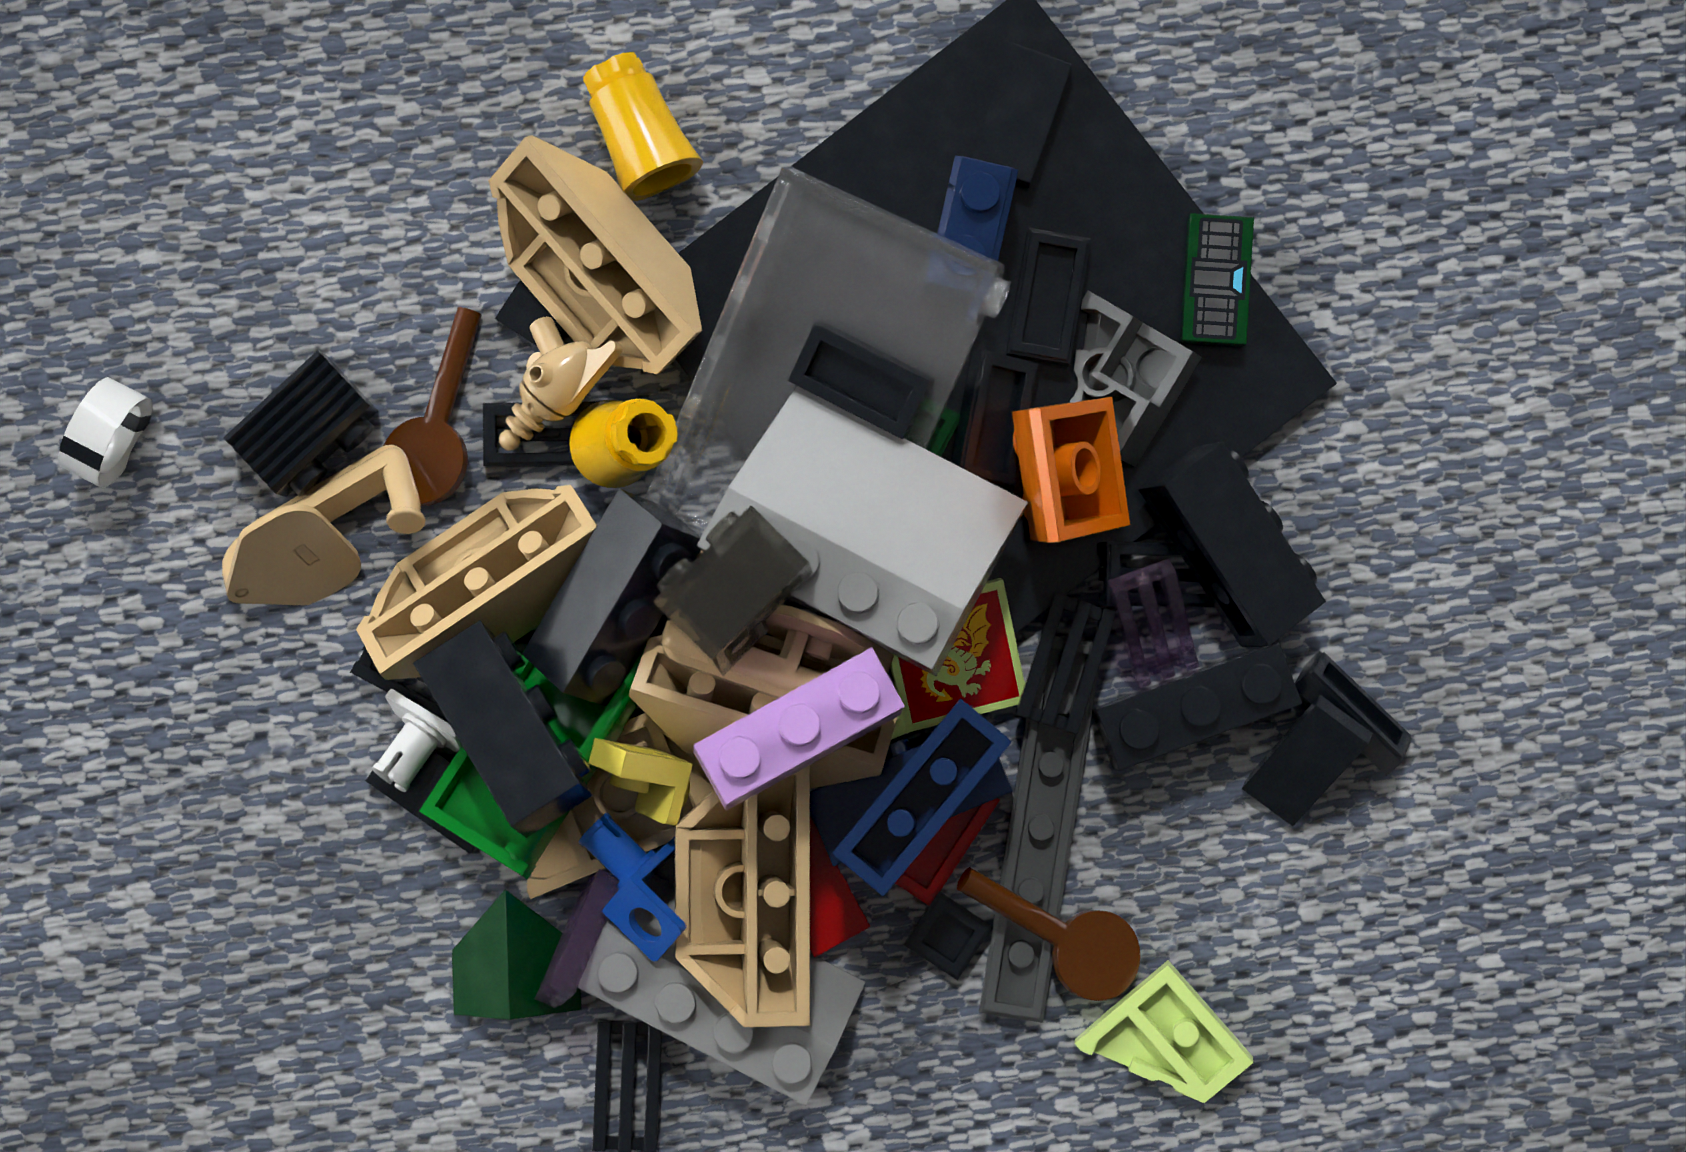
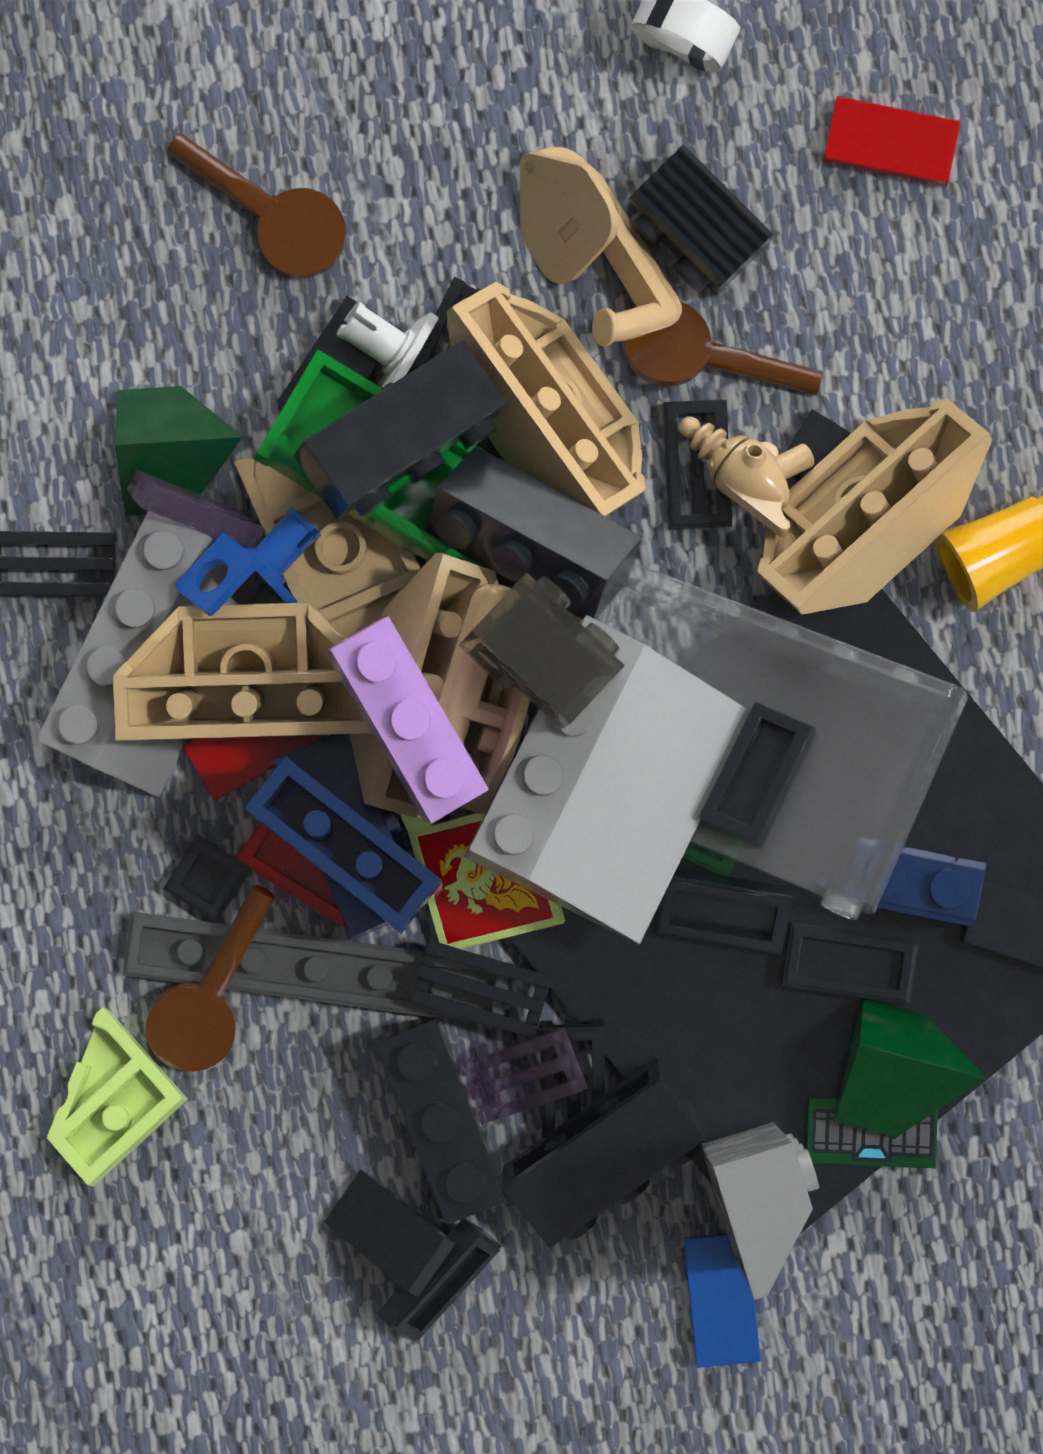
camera: 90 degrees right, 0 degrees up
(228, 231) = (891, 141): none -> red tile
(297, 830) = (296, 230): none -> reddish brown piece
(602, 444) = (688, 518): yellow plant -> none
(654, 774) = (359, 581): light yellow bracket -> none
(1070, 469) = (674, 987): orange slope -> none
(1135, 368) = (766, 1042): dark grey slope -> none
(1158, 249) = (899, 1071): none -> dark green slope
(1287, 384) = (762, 1197): none -> light grey slope
(1376, 433) = (719, 1304): none -> blue tile

